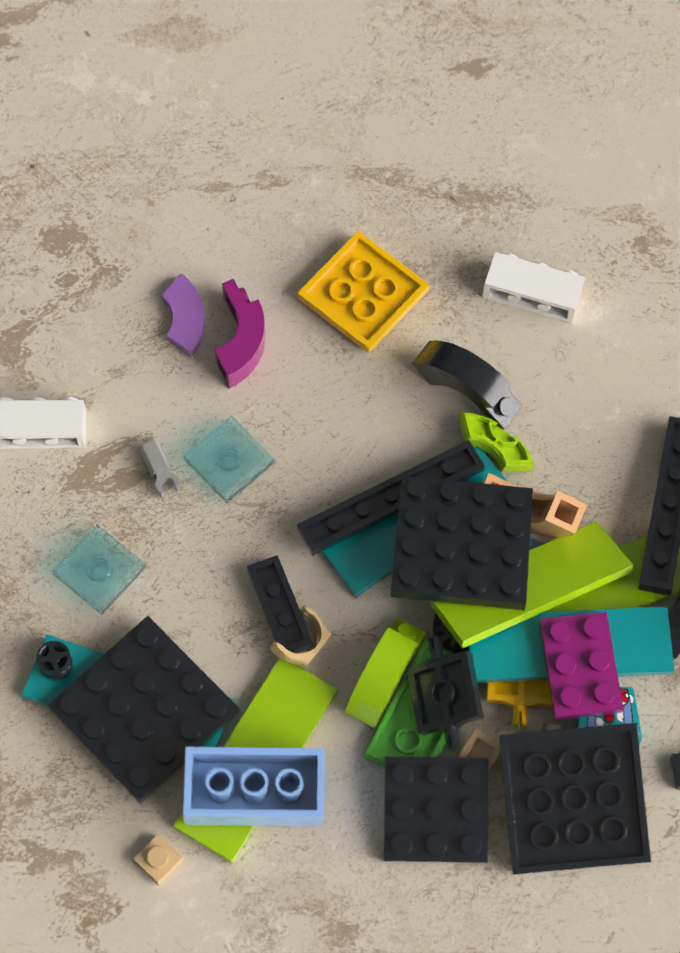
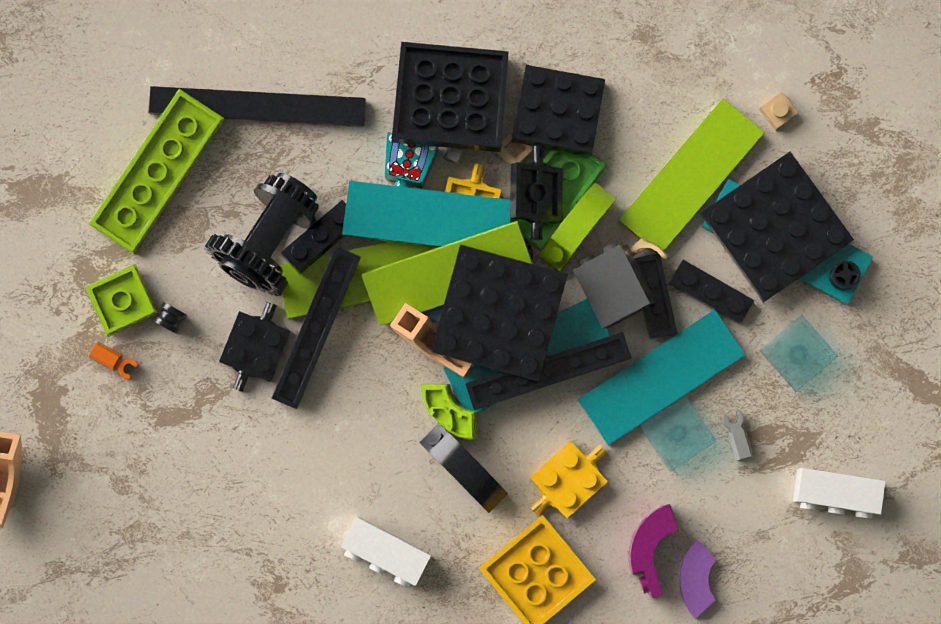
camera: 165 degrees left, 15 degrees up
(212, 625) = (711, 292): none -> black plate
(254, 786) = (700, 142): light blue brick -> none
(256, 520) = (661, 377): none -> teal tile
(330, 604) = (614, 285): none -> dark grey brick
(345, 393) = (568, 480): none -> yellow plate
(580, 665) = (424, 194): magenta plate -> none

